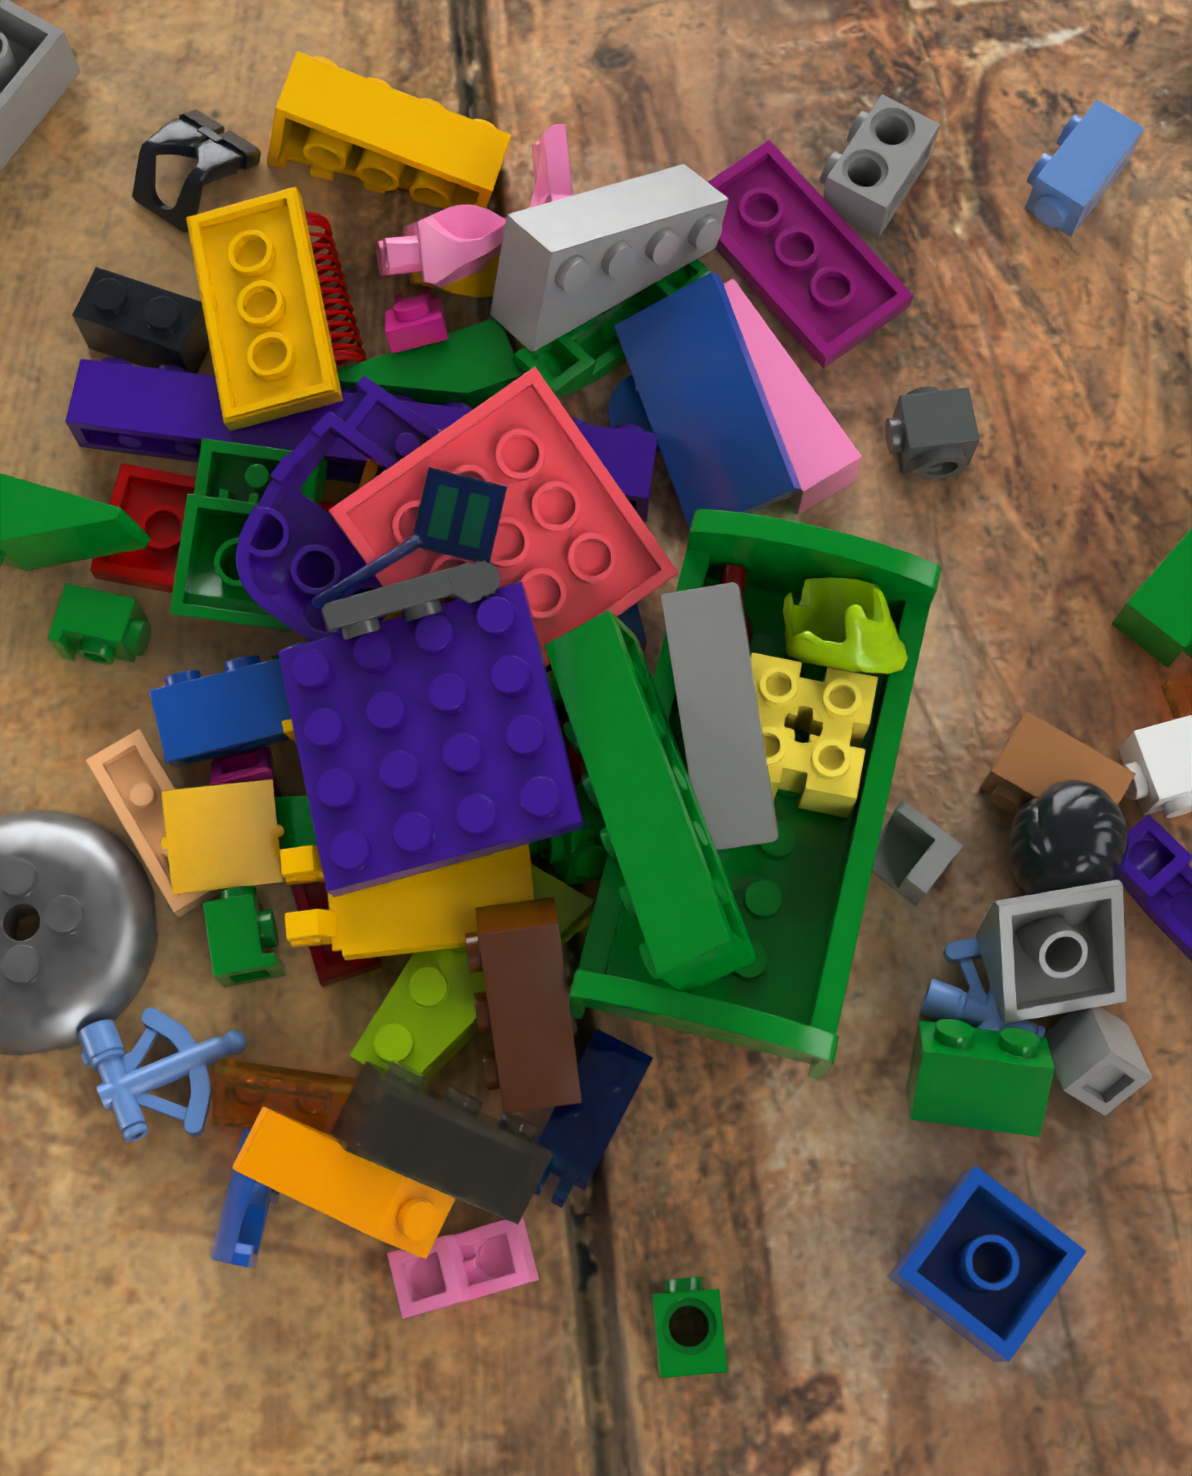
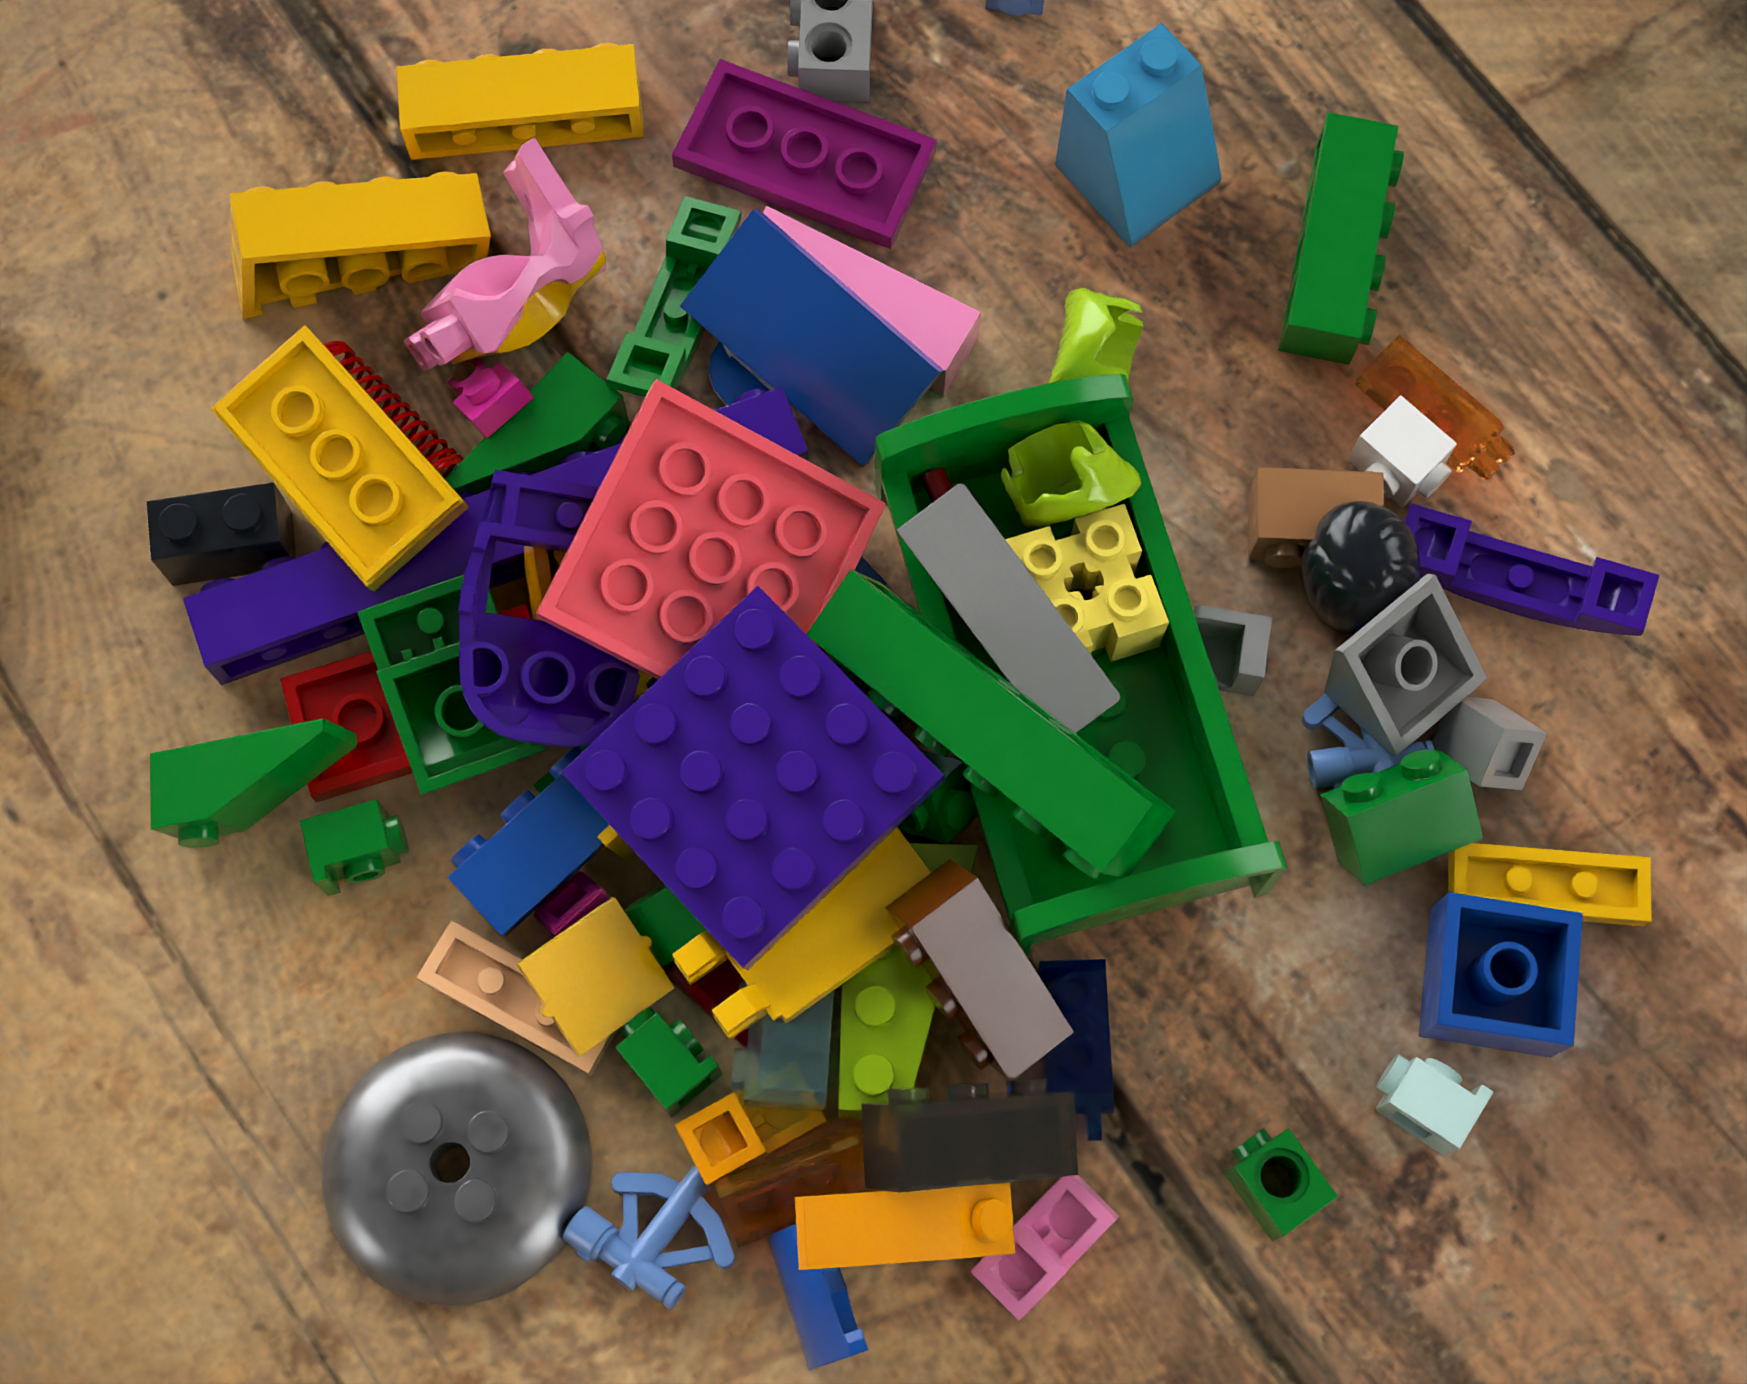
camera: 30 degrees left, 0 degrees up
(214, 156) = (190, 333): black piece -> none
(280, 1028) = (734, 1136): none -> light orange slope
(337, 994) = (787, 1062): none -> clear light blue brick
(414, 597) = (664, 653): dark grey hinge -> none
(453, 519) = (658, 561): clear blue piece -> none
(595, 96) = (508, 100): none -> yellow brick
(599, 249) = (630, 241): light grey wedge -> none
(861, 1337) = (1430, 1102): none -> light aqua brick
(933, 432) = (1026, 256): dark grey brick -> none
(953, 534) = (1096, 336): none -> lime hair
(1086, 1211) = (1595, 884): none -> yellow plate
(1089, 376) = (1140, 135): none -> dark azure slope

